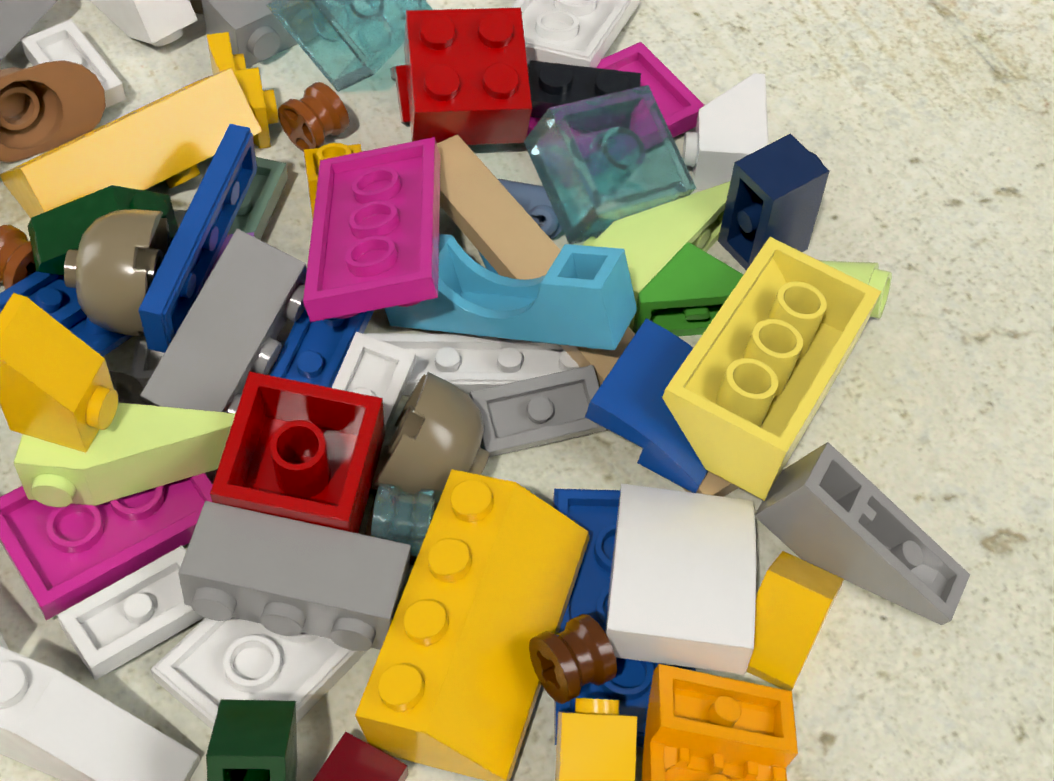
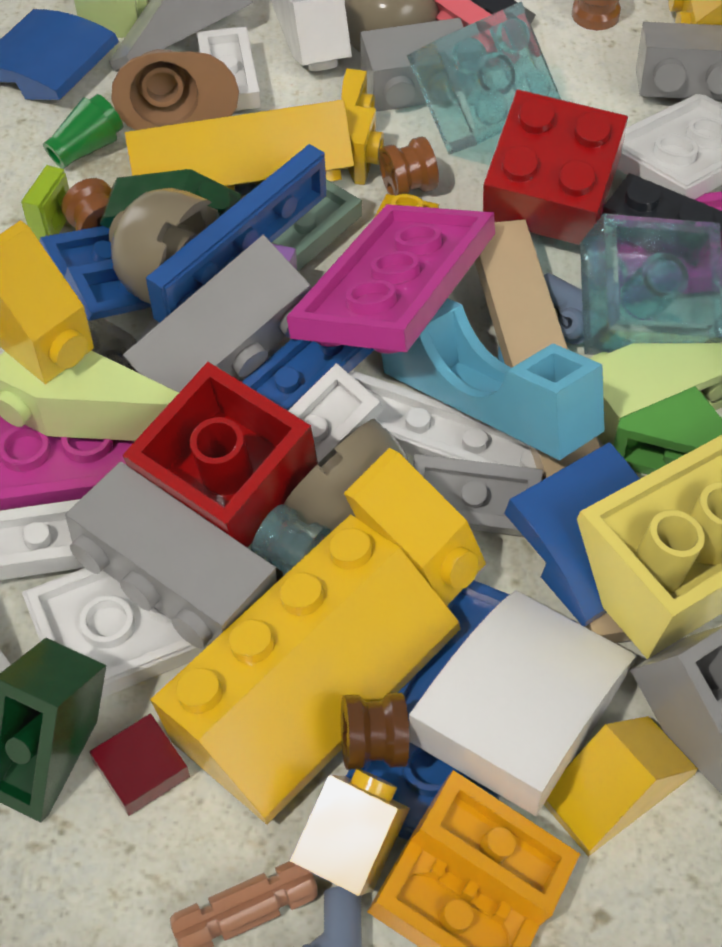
camera: 30 degrees right, 0 degrees up
(516, 449) = (418, 520): none -> yellow slope

